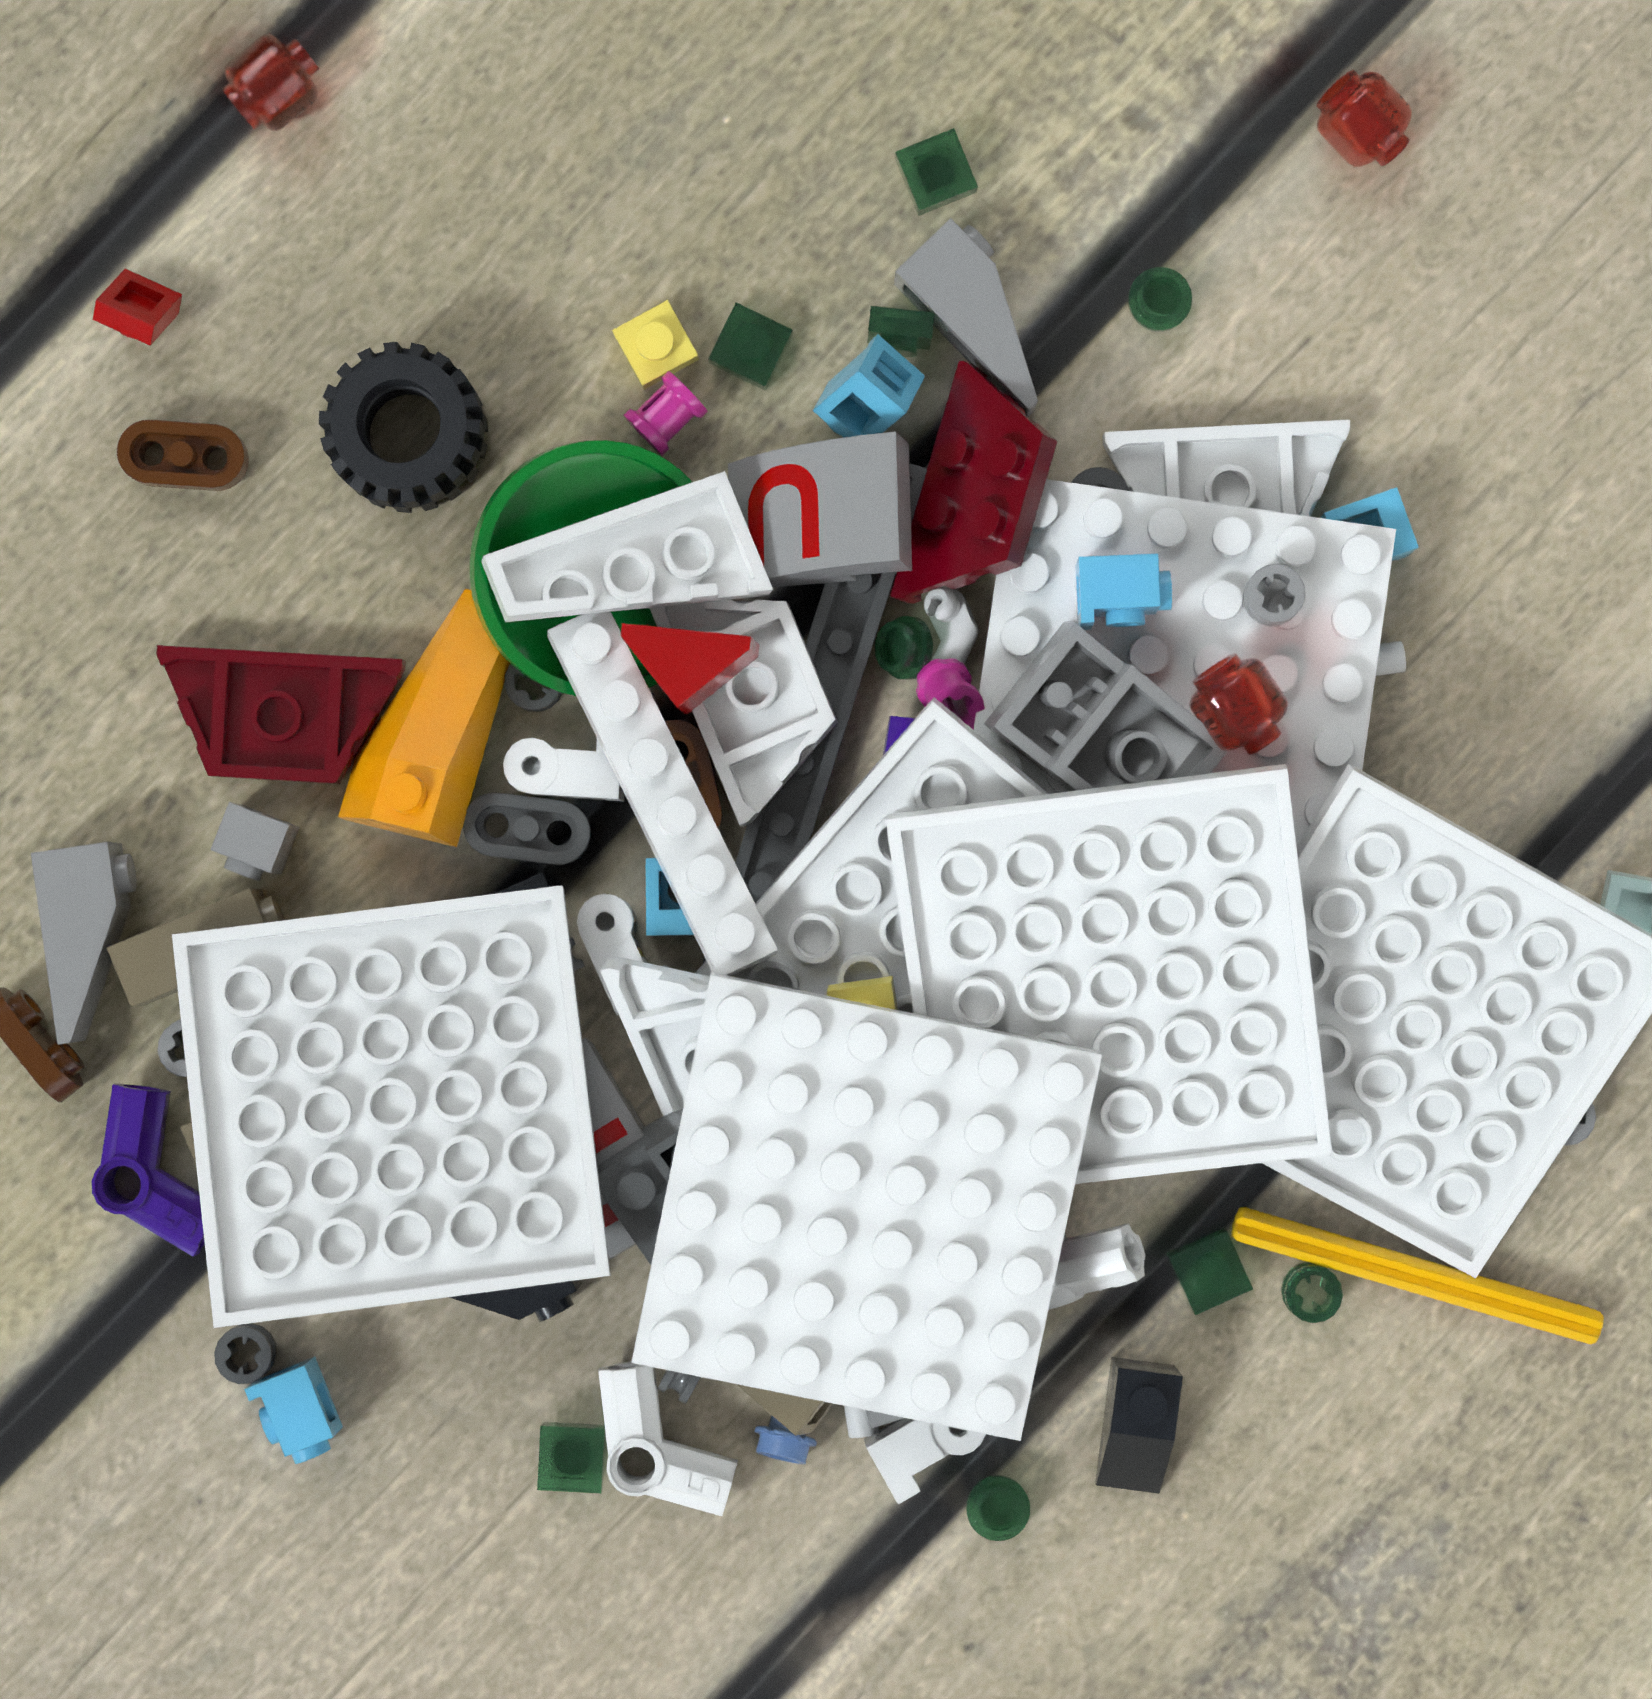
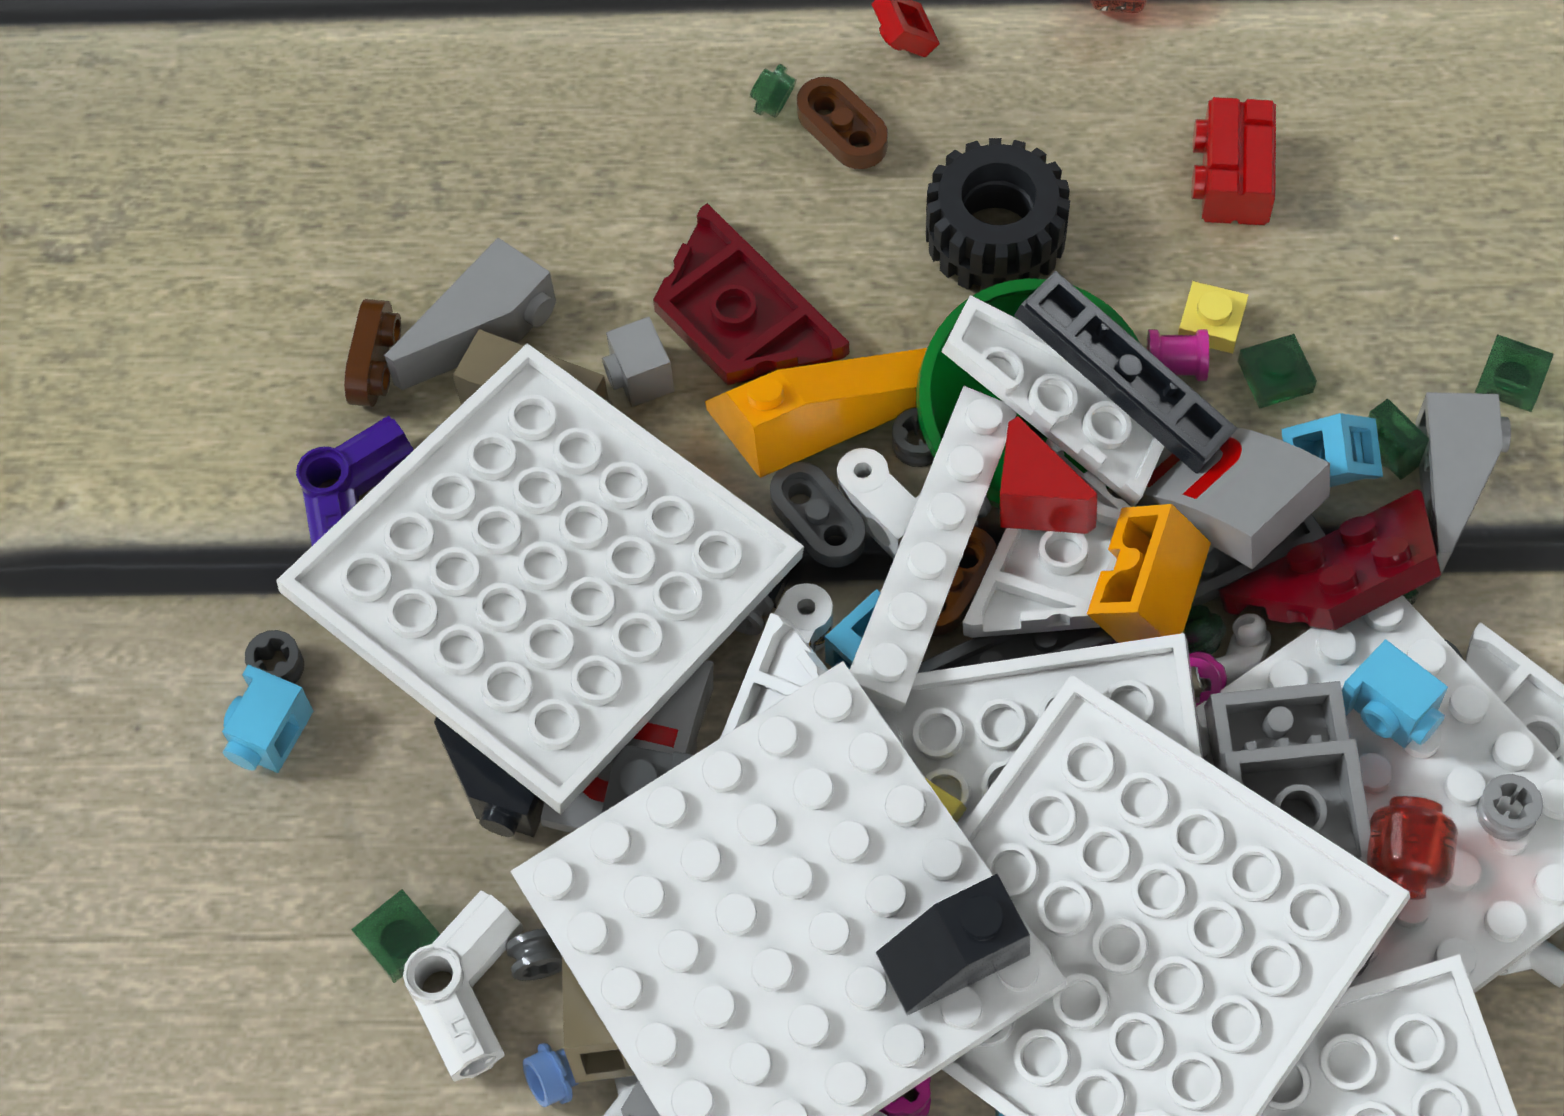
camera: 50 degrees right, 25 degrees down
(94, 482) = (772, 91): none -> clear green plate
(541, 178) = (1237, 161): none -> red brick
(663, 499) = (1125, 371): none -> black plate
(847, 652) = (1153, 576): none -> light orange brick
(1014, 1119) = (955, 945): none -> black slope

